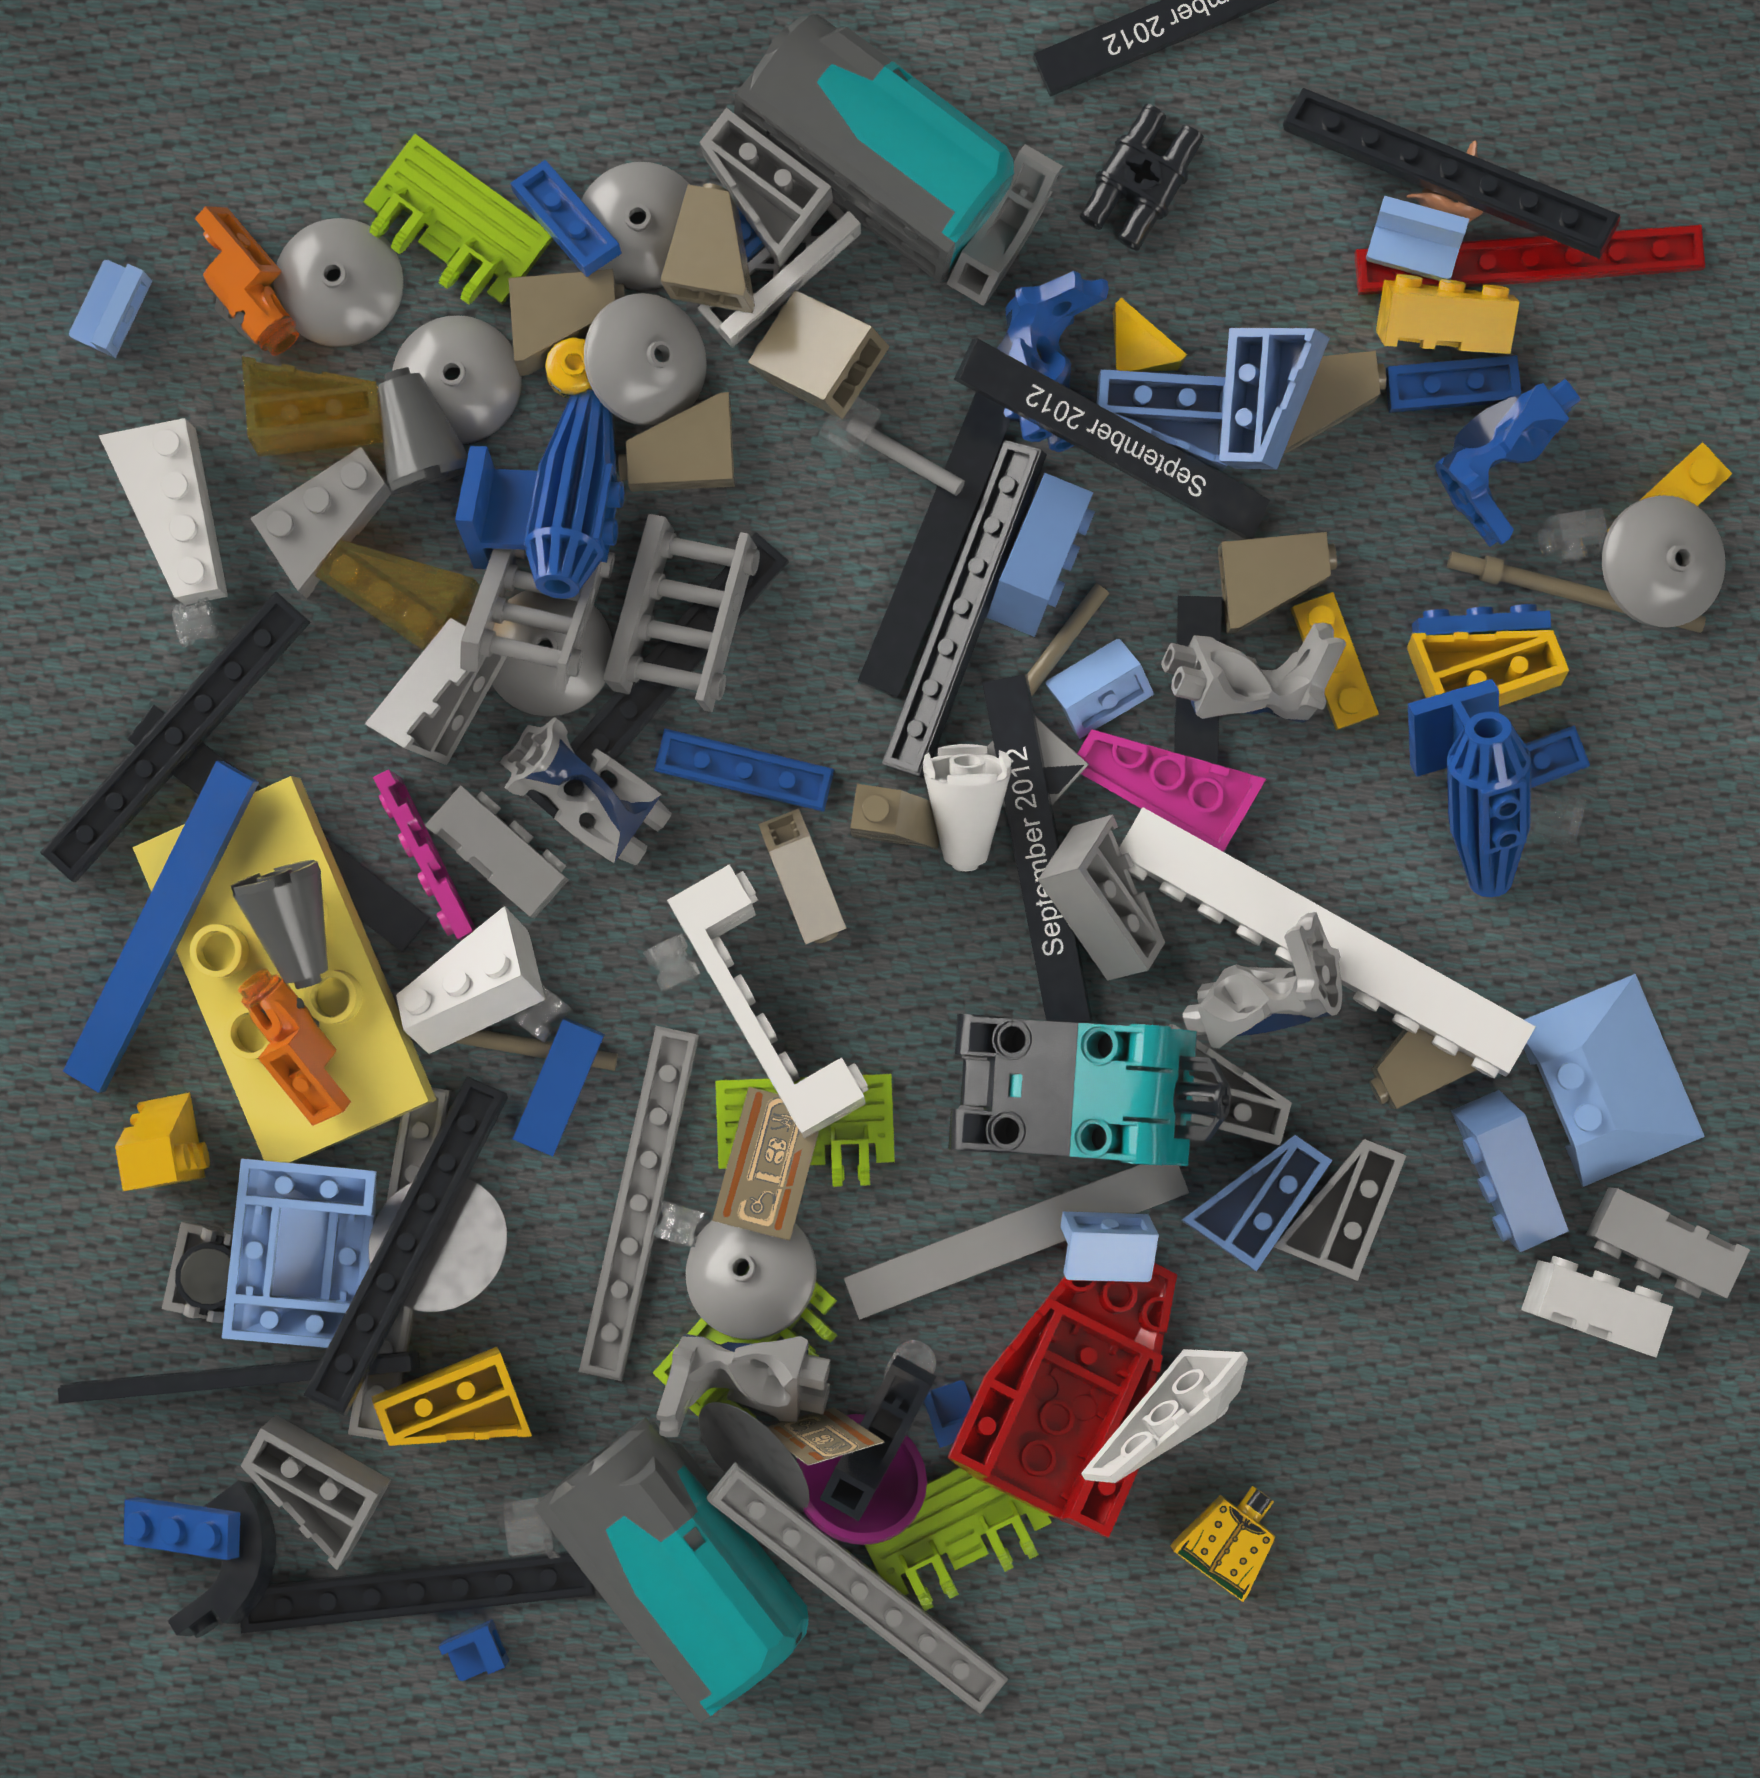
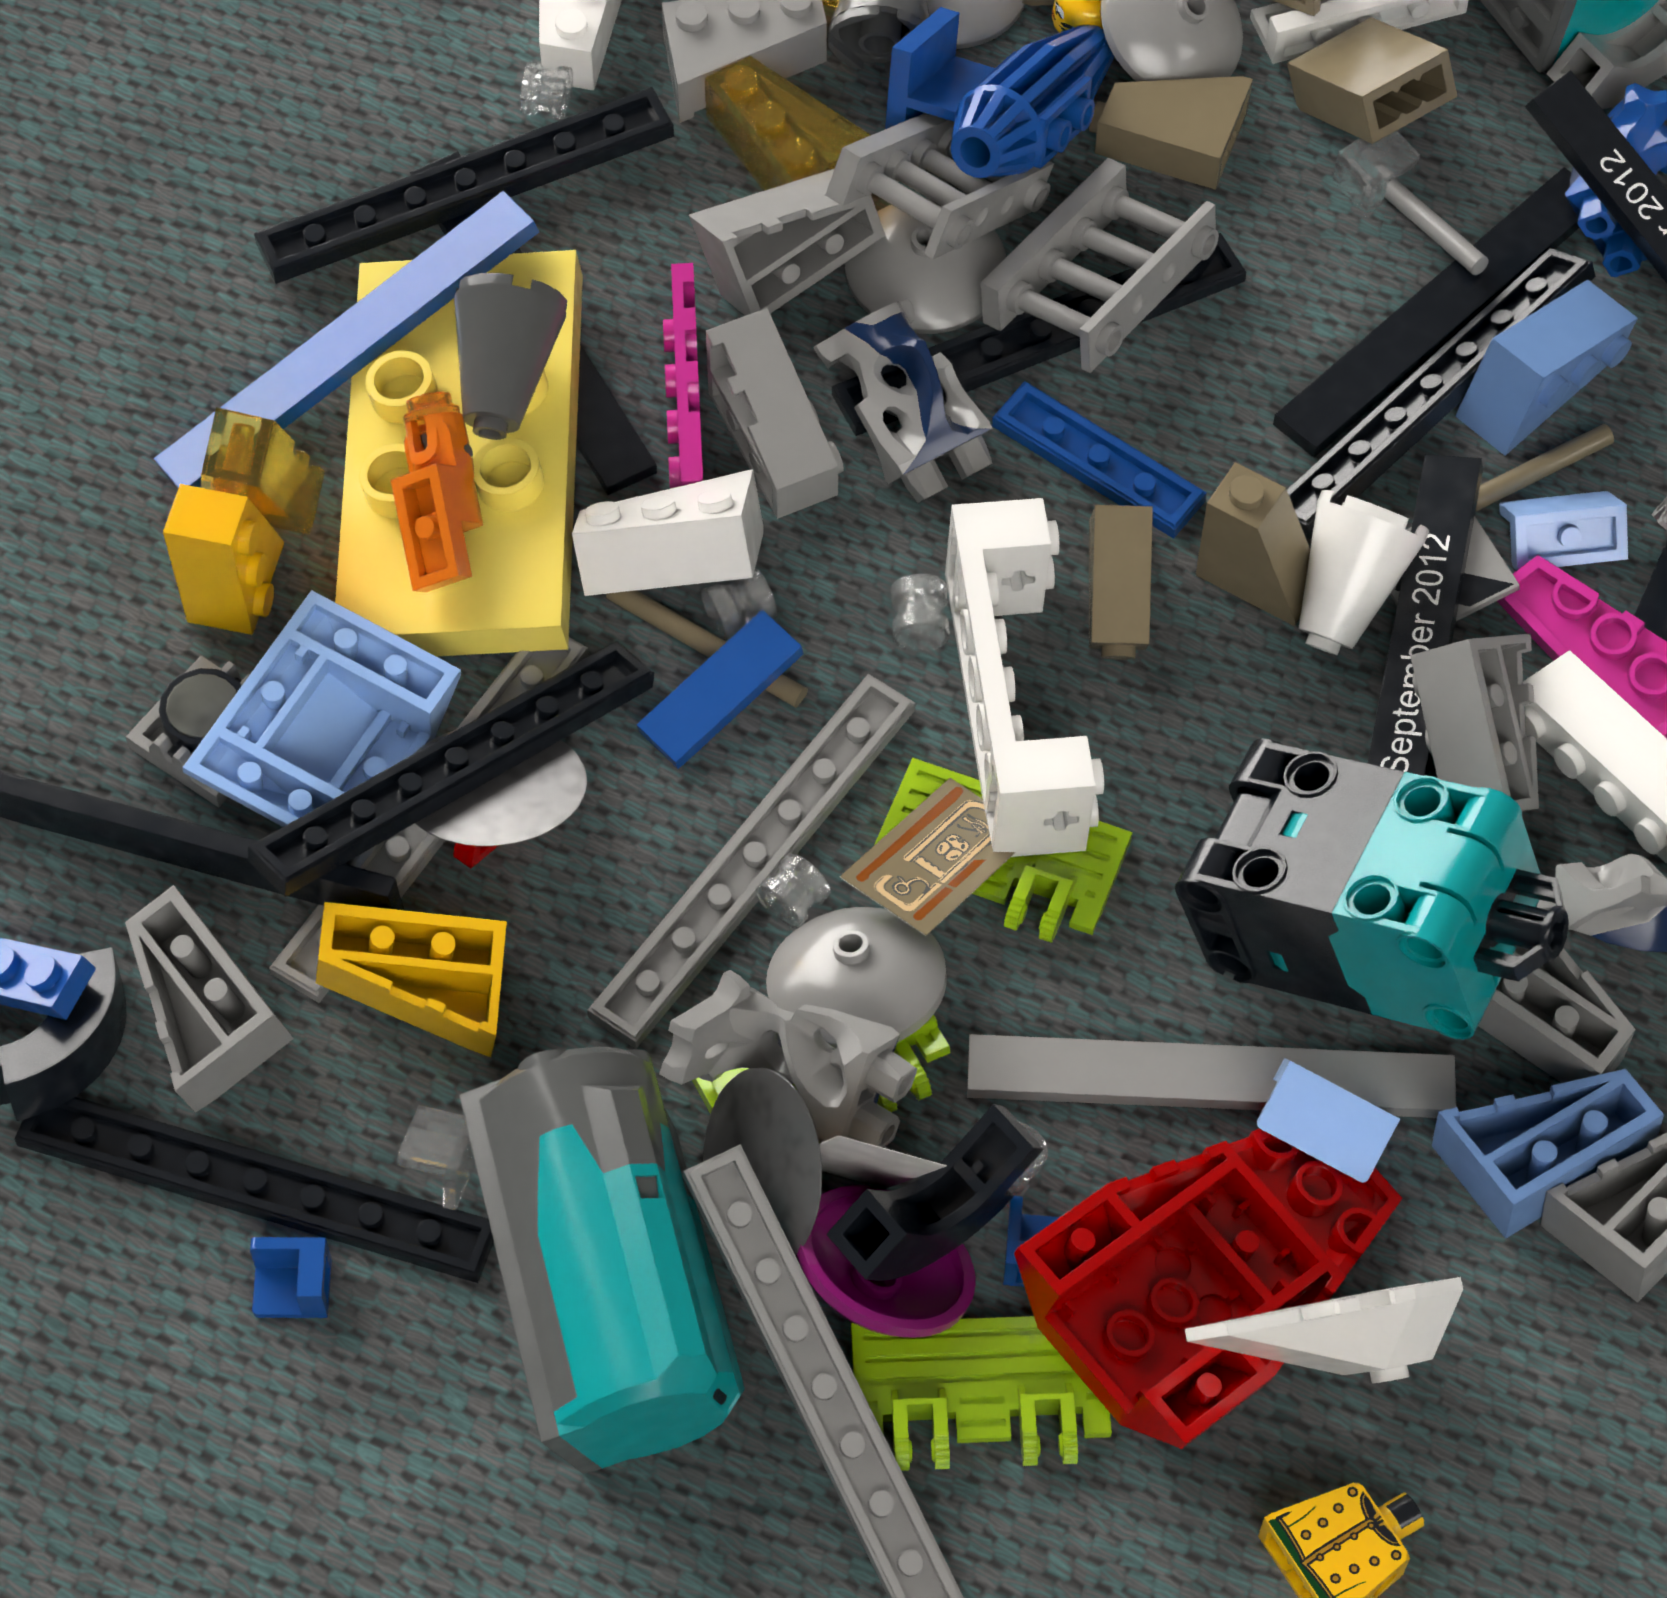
camera: 20 degrees right, 25 degrees down
(155, 1081) = (257, 461): none -> clear yellow wedge

